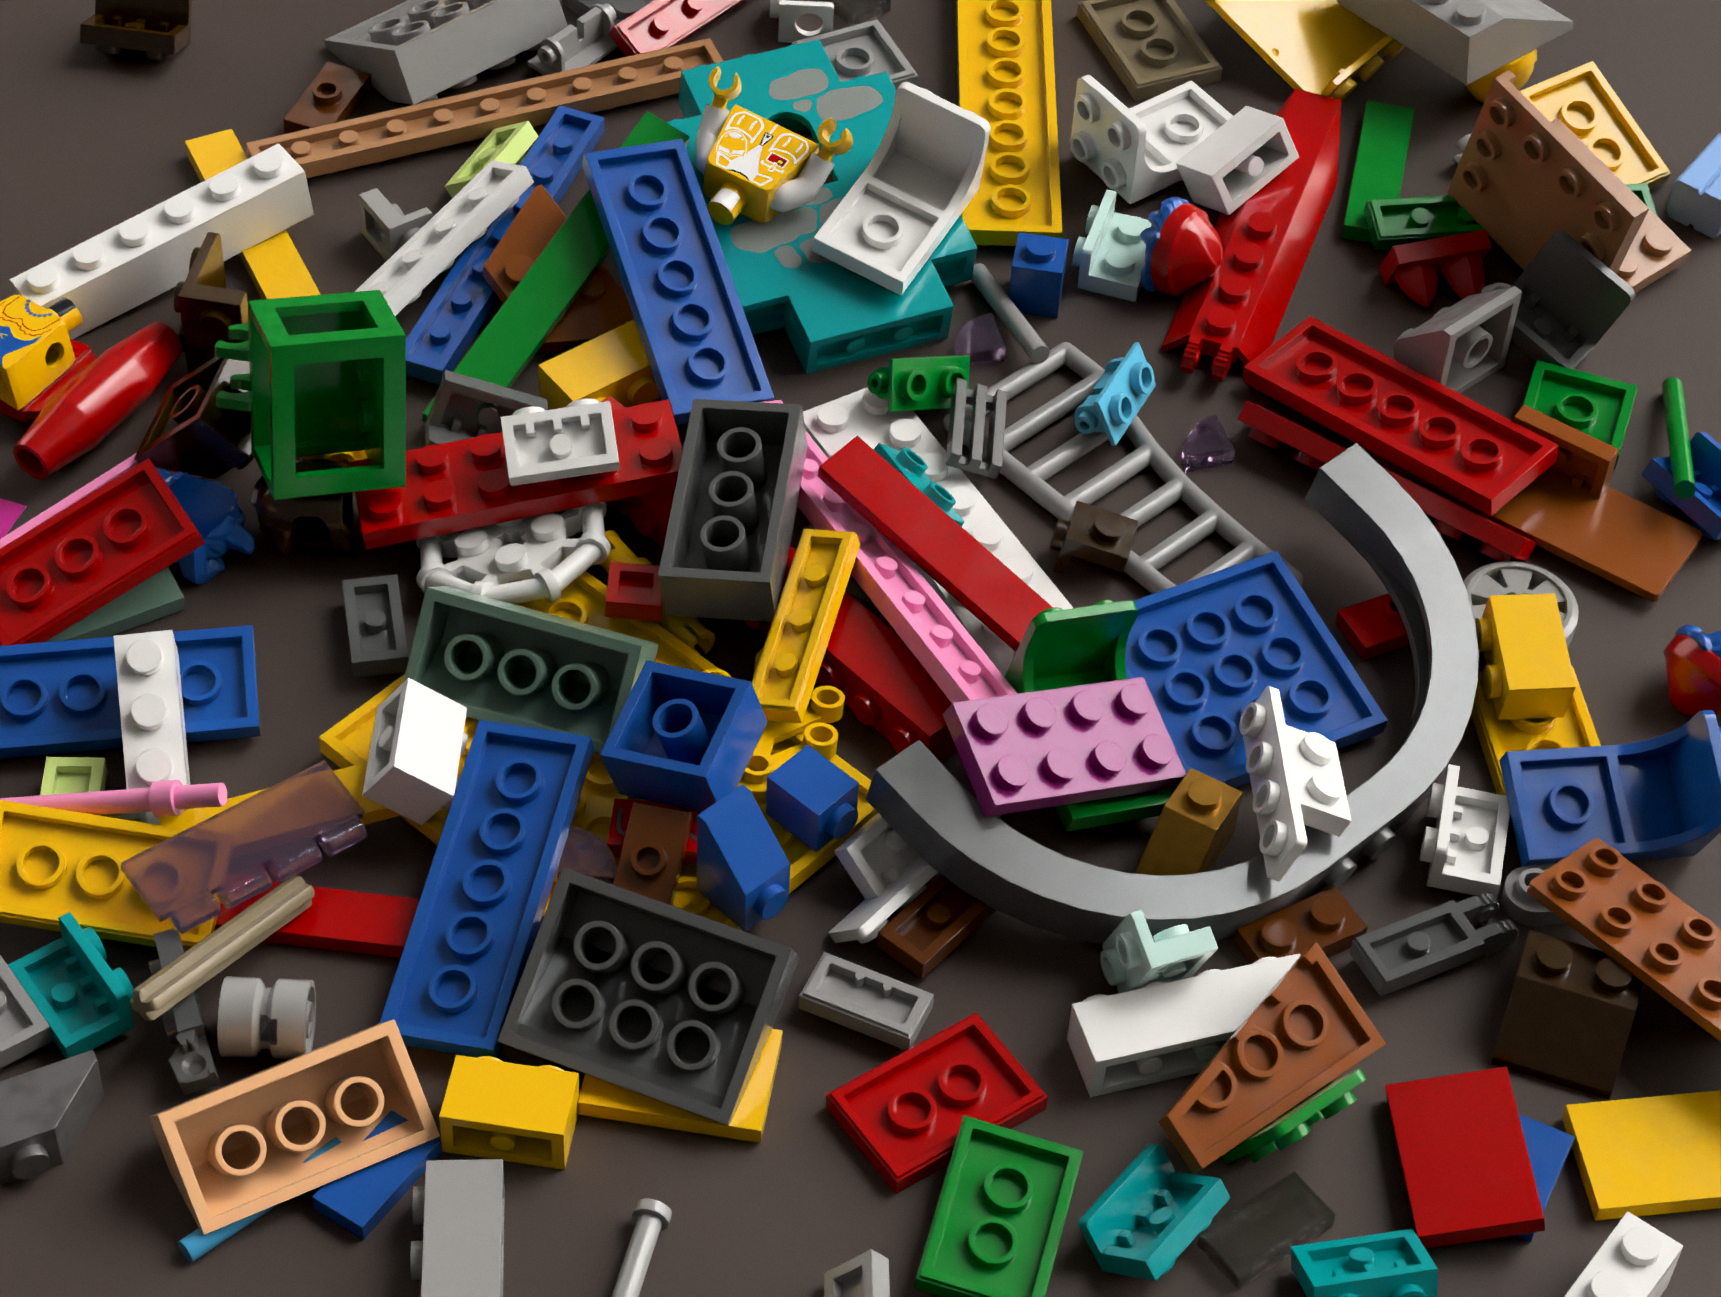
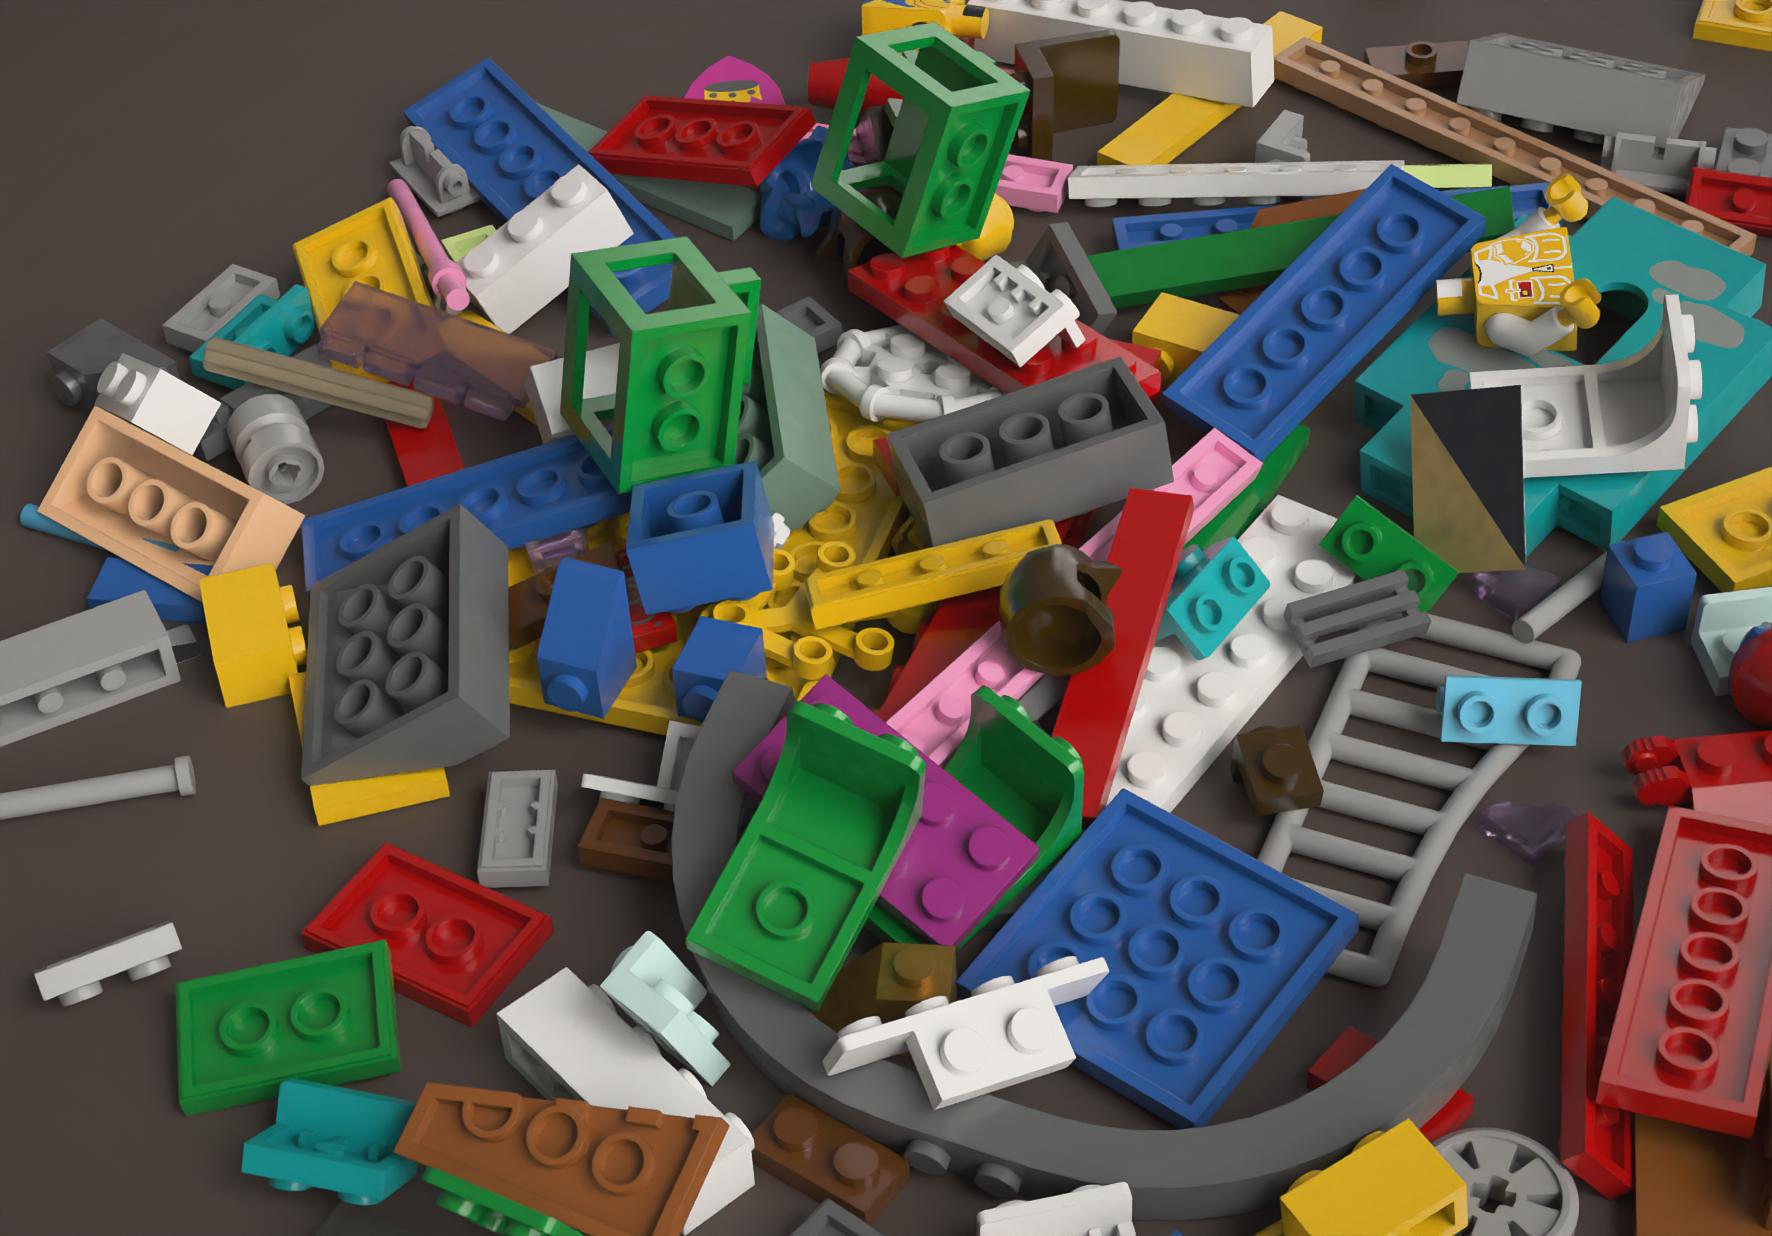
camera: 70 degrees right, 5 degrees down
(157, 1078) = (156, 402): none -> white brick
(516, 643) = (675, 367): none -> green piece
(905, 293) = (1470, 477): none -> sticker
(932, 556) = (1058, 610): none -> dark brown piece
(1115, 791) = (813, 855): none -> green bracket

